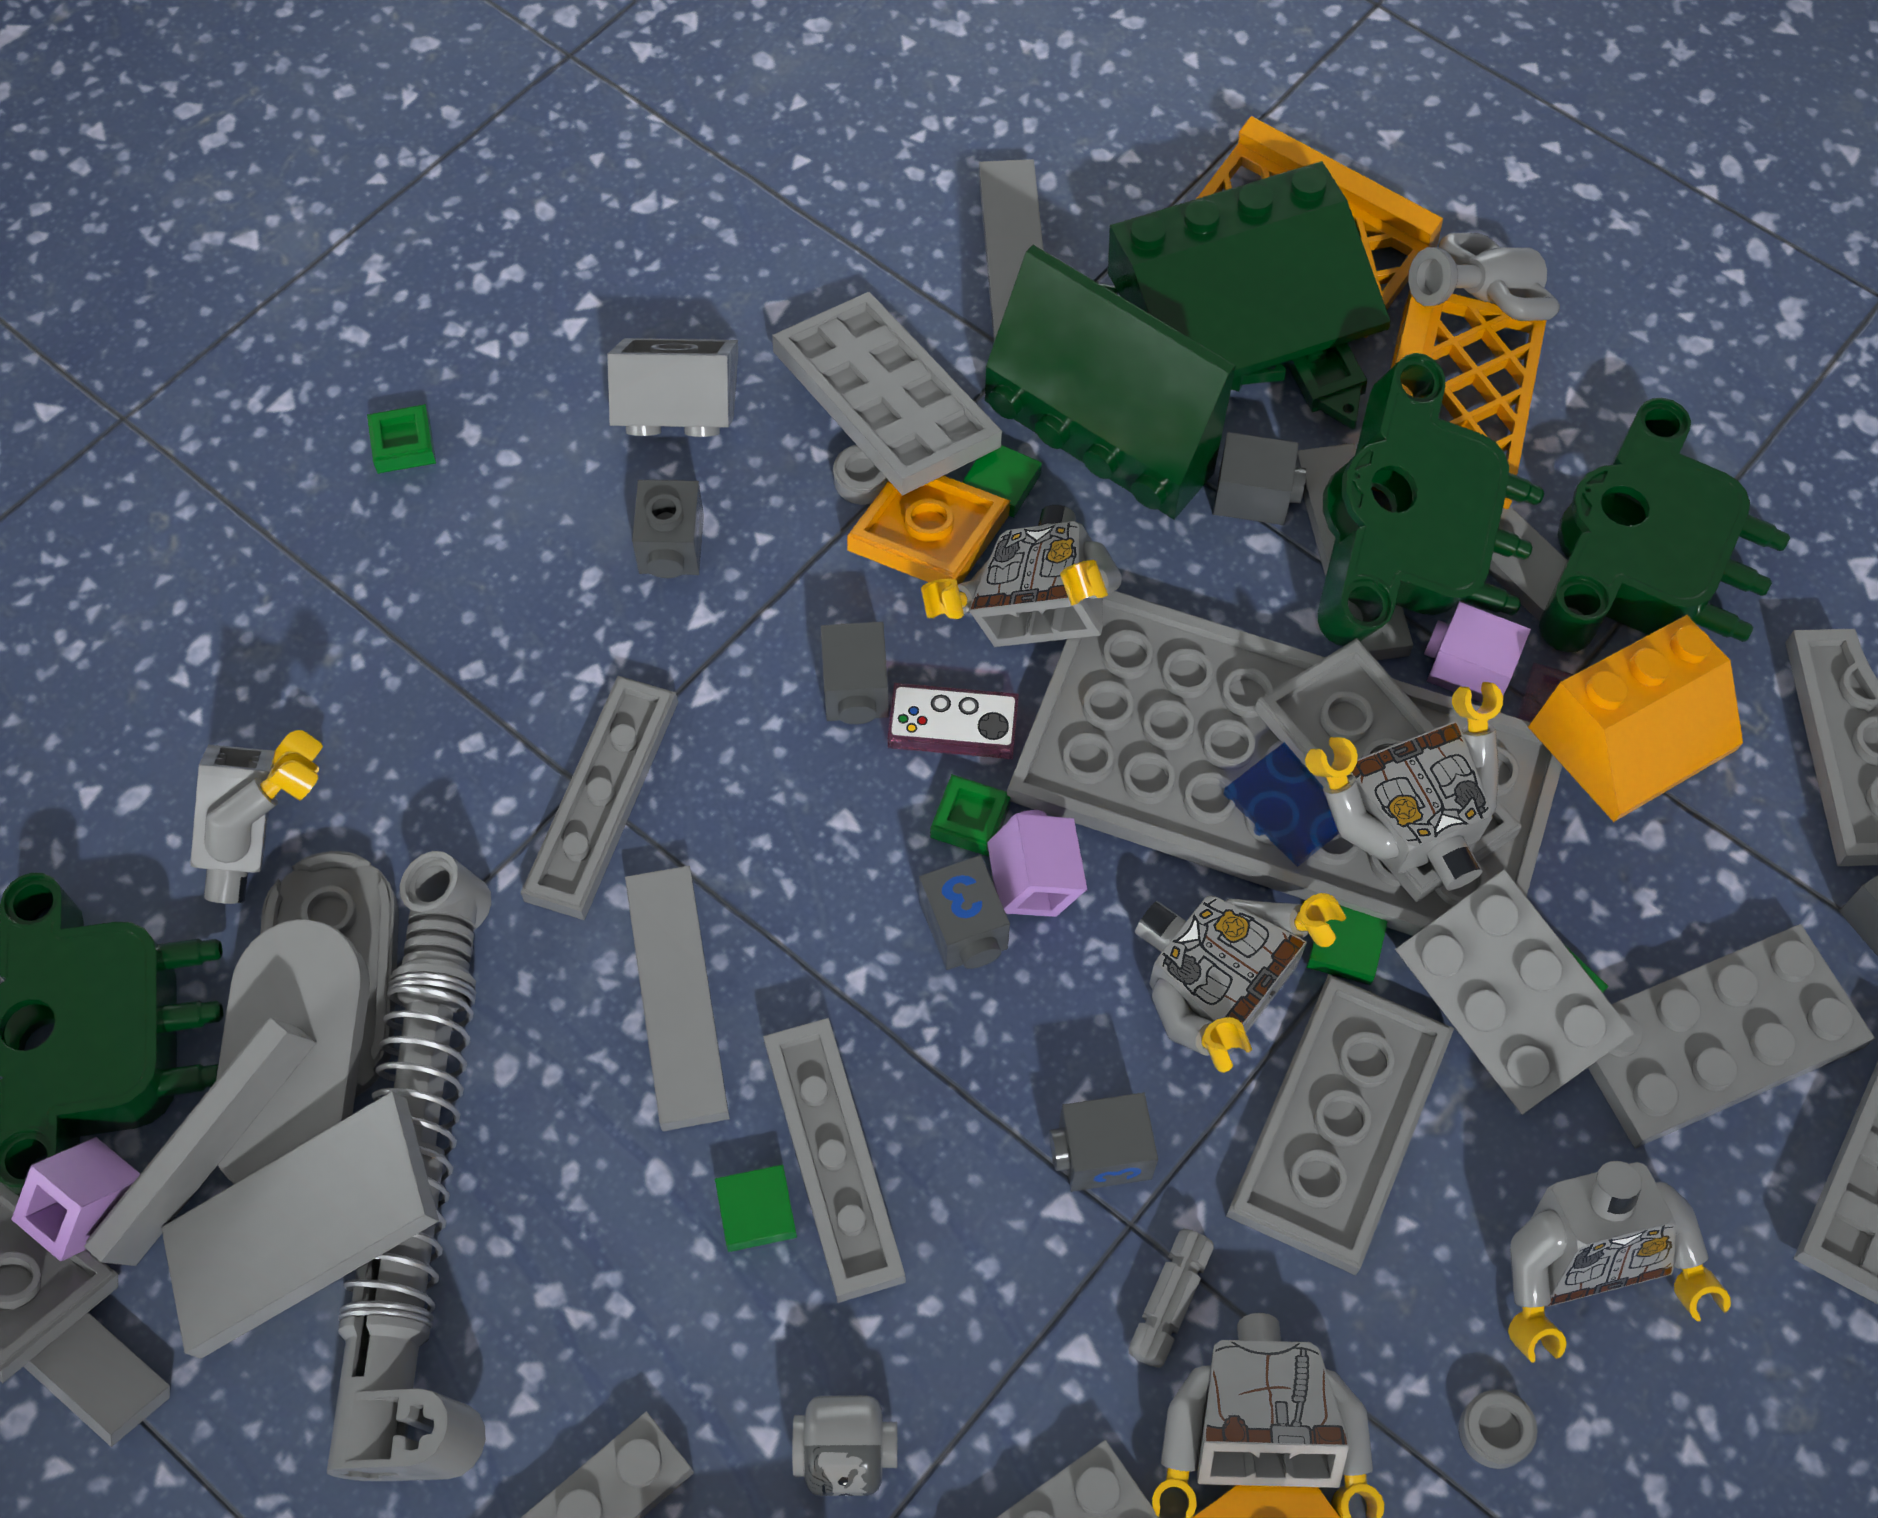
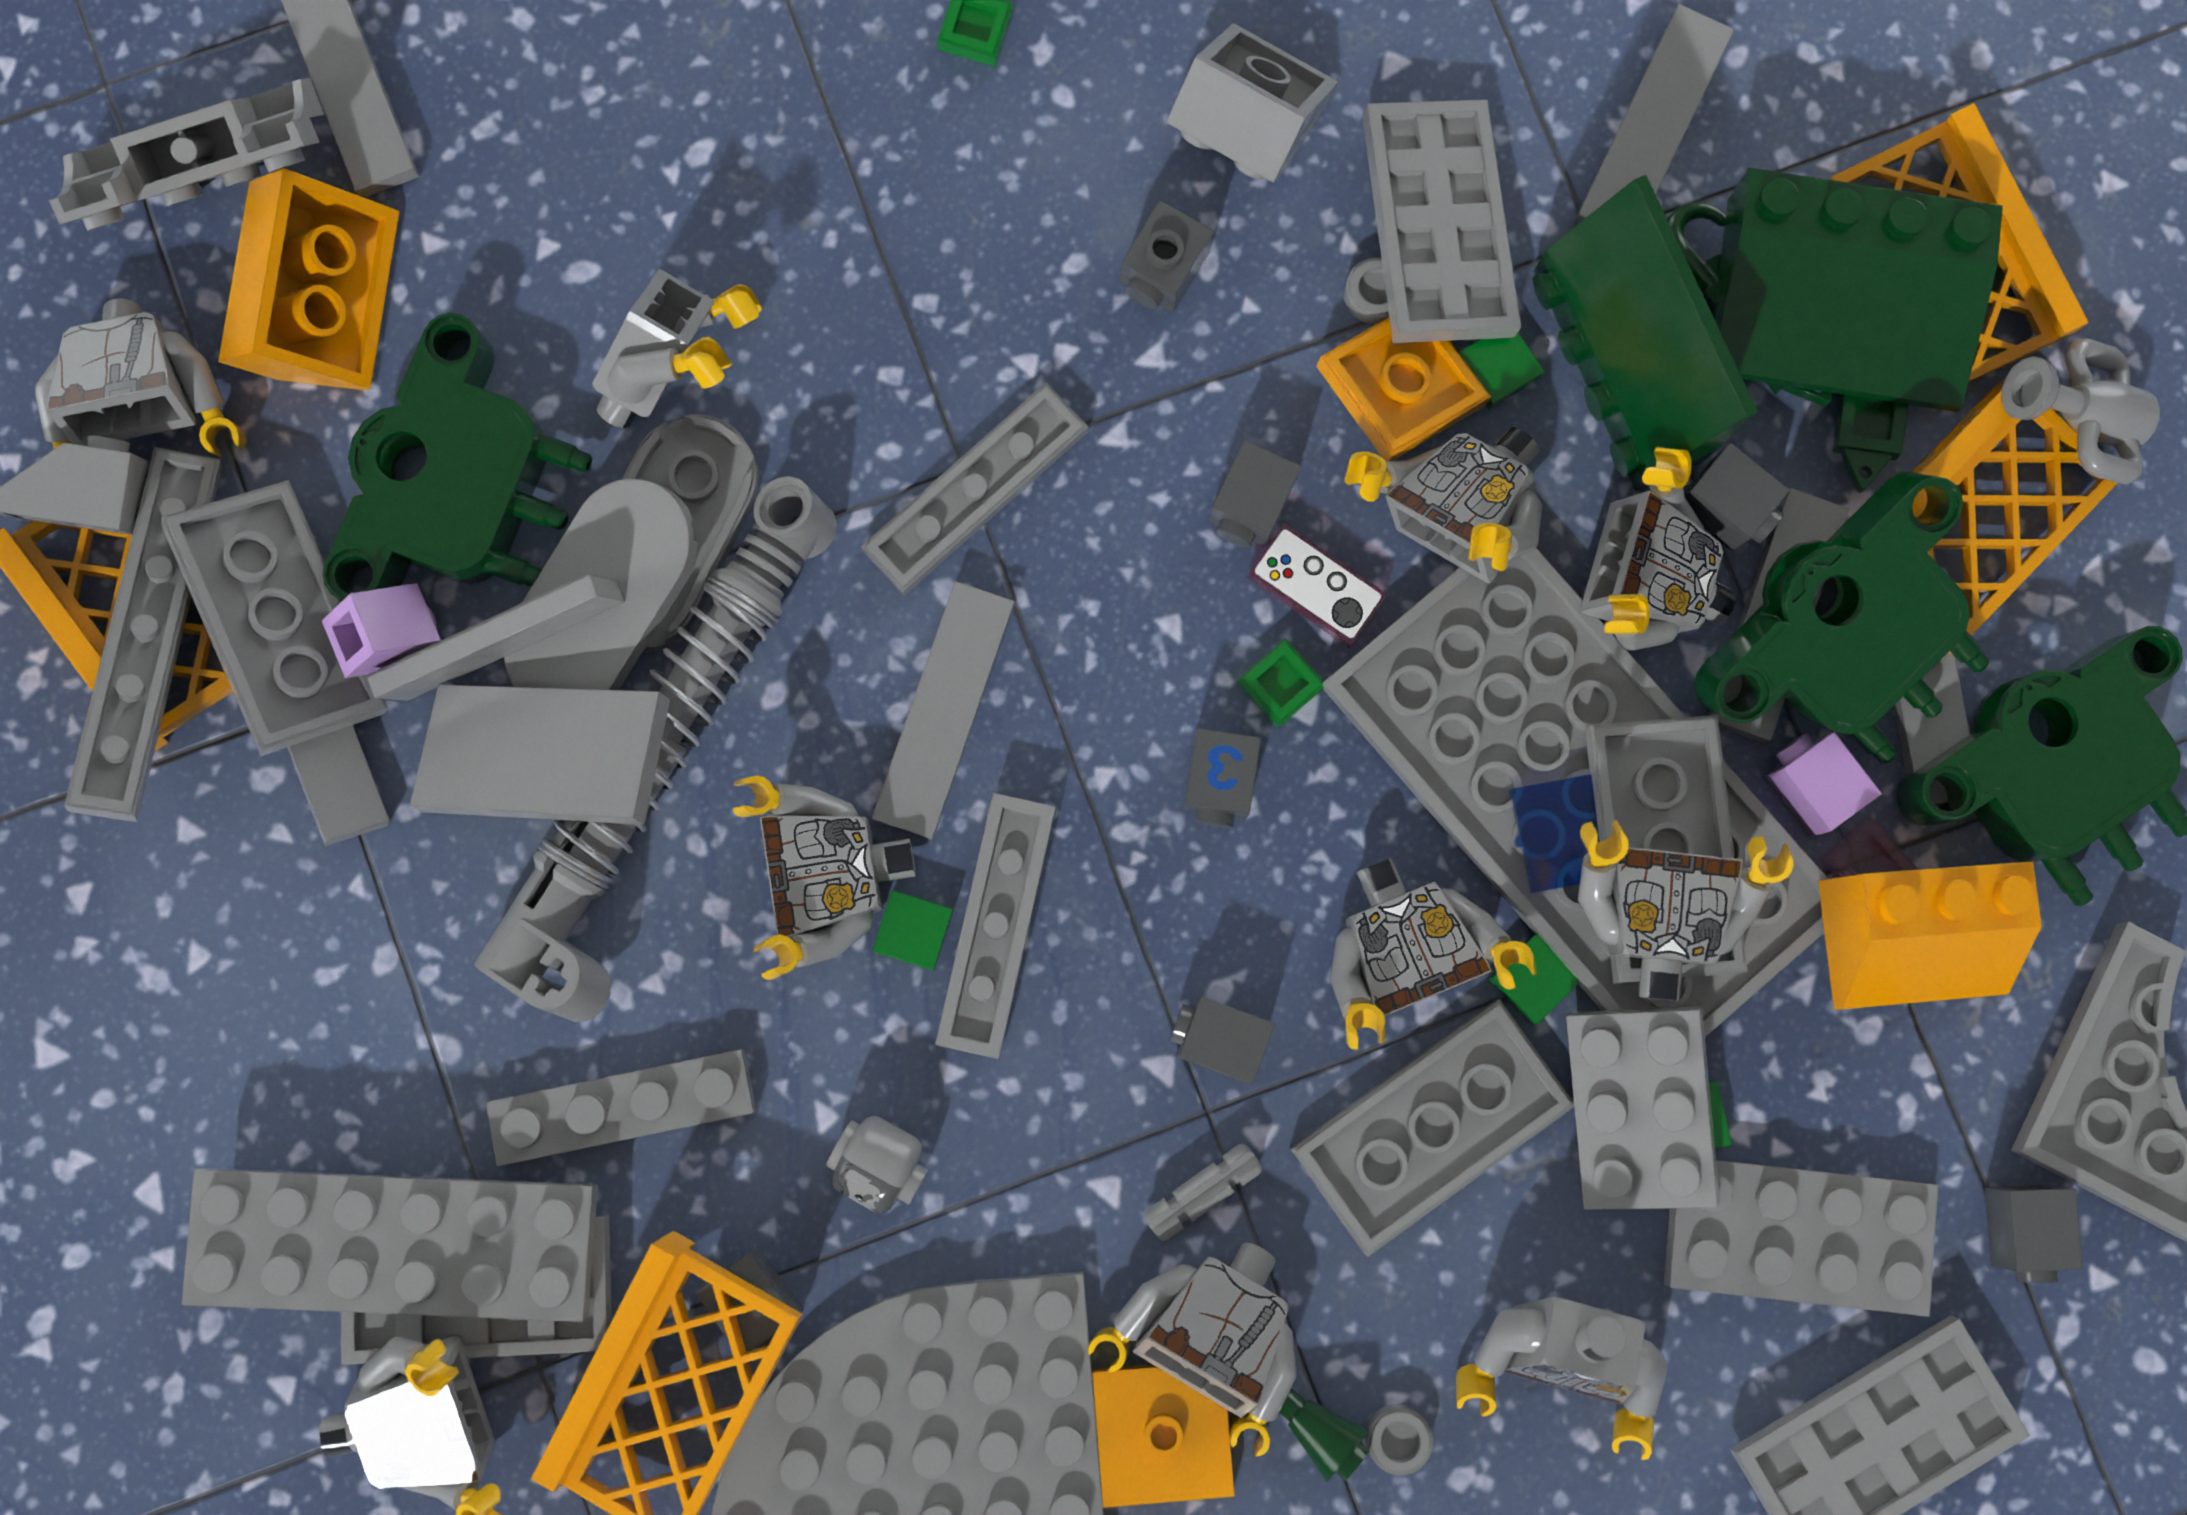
camera: 25 degrees right, 20 degrees up
(634, 1192) = (819, 871): none -> torso
(1037, 864) = (1307, 766): lavender brick -> none
(1226, 551) = (1656, 562): none -> torso
(1430, 1462) = (1326, 1437): none -> dark green cone

